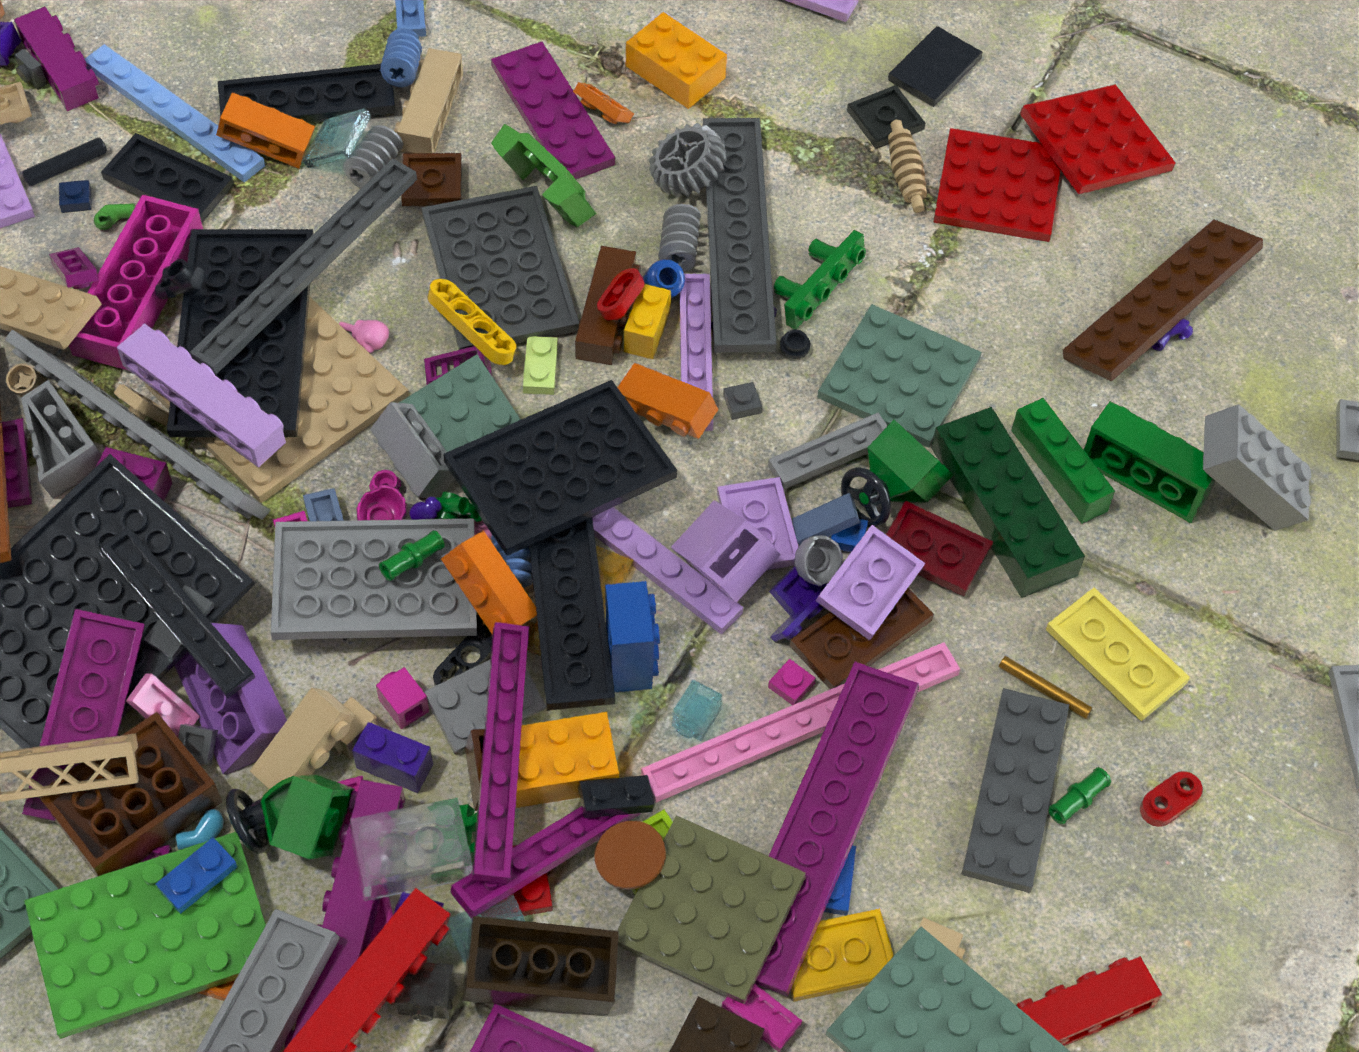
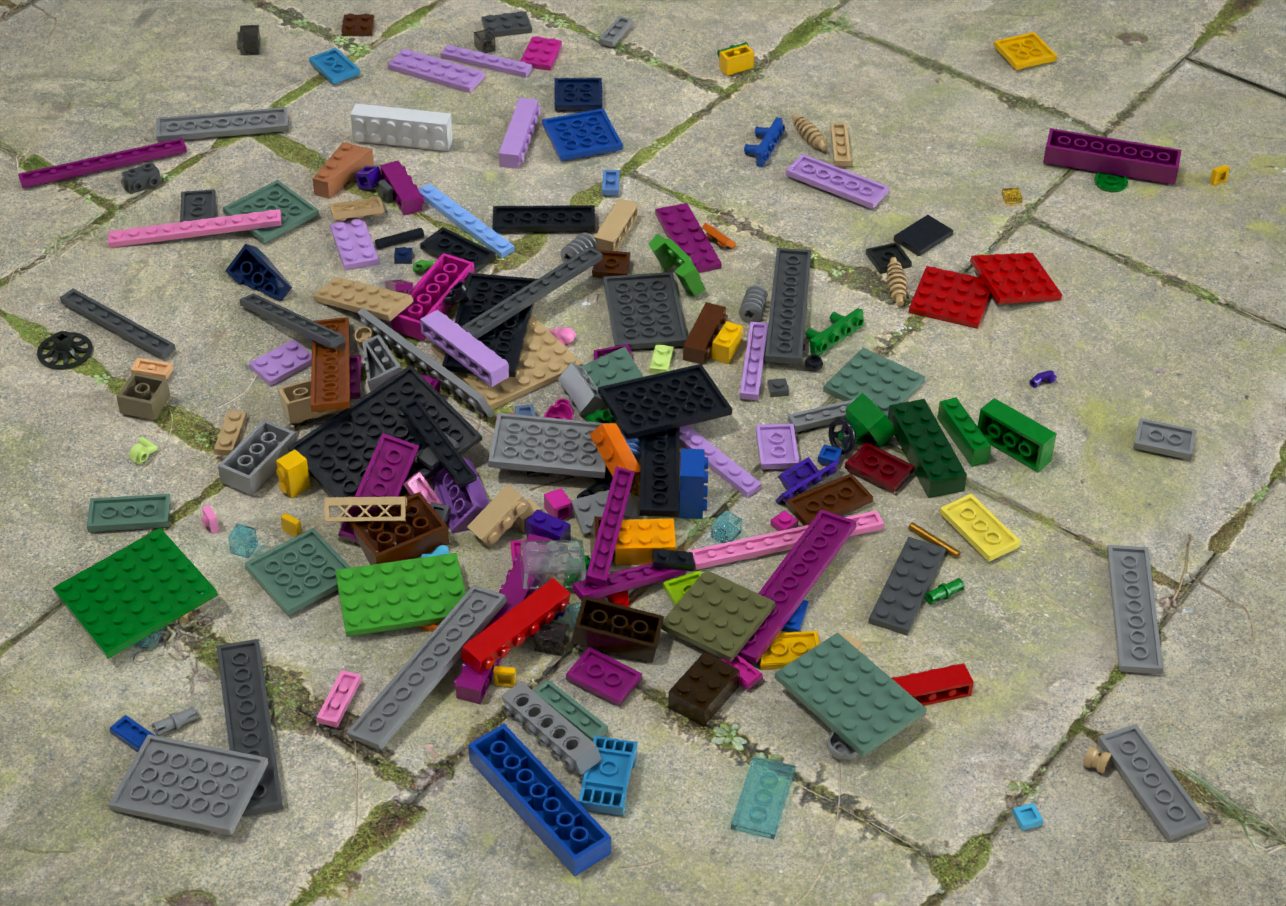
camera: 10 degrees right, 15 degrees down
(141, 405) = (429, 350): tan plate -> none
(196, 875) = (431, 566): blue plate -> none
(265, 130) = (517, 230): orange brick -> none
(294, 815) = (492, 543): green piece -> none
(336, 138) = (558, 238): clear light blue tile -> none
(401, 57) = (602, 201): medium blue piece -> none
(411, 555) = (573, 433): green pin -> none
(425, 509) = (584, 416): dark purple arm -> none
(494, 345) = (624, 331): yellow beam -> none
(620, 294) = (712, 324): red plate -> none
(630, 855) = (676, 584): dark orange piece -> none
(666, 275) = (742, 318): blue head -> none
(668, 401) = (734, 379): orange brick -> none
(676, 60) = (765, 218): light orange brick -> none
(687, 160) = (764, 265): light grey gear -> none
(726, 550) = (756, 452): lavender slope -> none
(818, 559) = (808, 460): light grey hair -> none
(826, 519) = (816, 446): sand blue tile -> none
(870, 582) = (837, 474): lavender plate -> none
(1162, 299) = (1040, 360): reddish brown plate -> none
(1173, 797) = (1001, 599): red plate -> none
(1256, 467) = (1077, 439): light grey brick -> none

